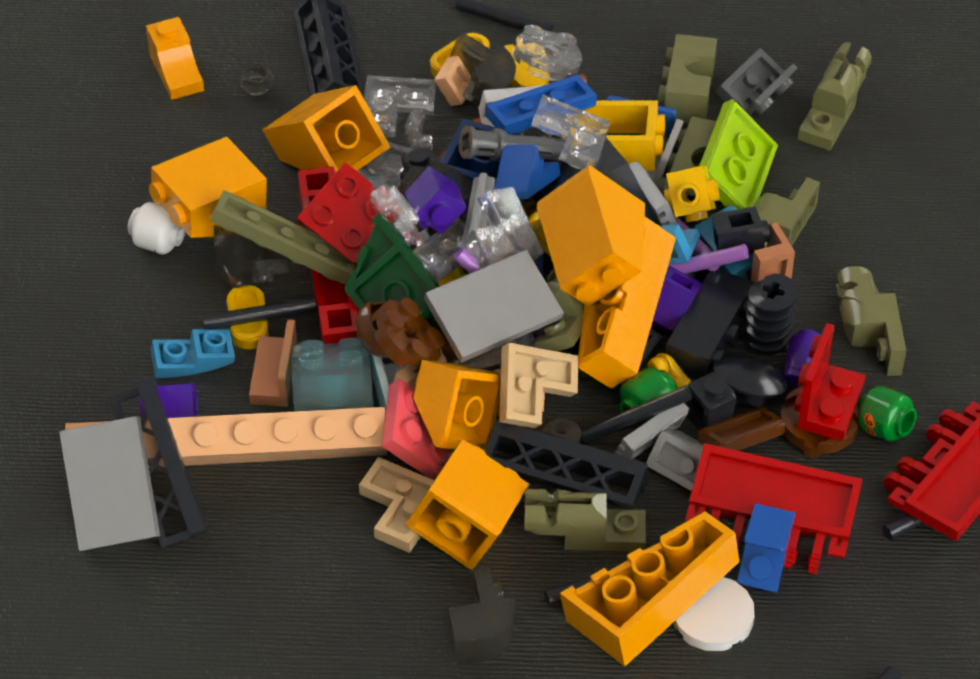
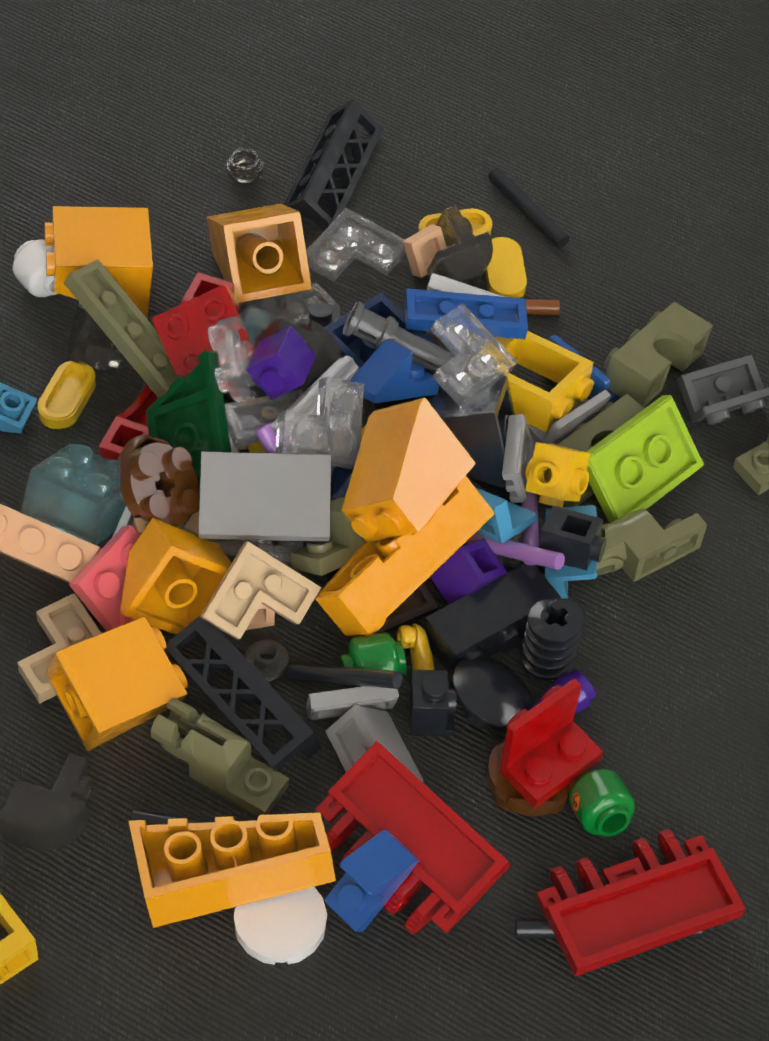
camera: 25 degrees right, 5 degrees up
(174, 58) = (182, 110): light orange arch -> none
(259, 313) = (68, 395): black bar -> none
(273, 369) = (52, 441): nougat panel -> none
(413, 130) = (352, 284): clear arm -> none
(547, 53) = (555, 263): clear plate -> none
(743, 430) = (442, 746): reddish brown tile -> none
(775, 258) = (590, 589): nougat panel -> none
(871, 317) = (662, 691): olive plate -> none

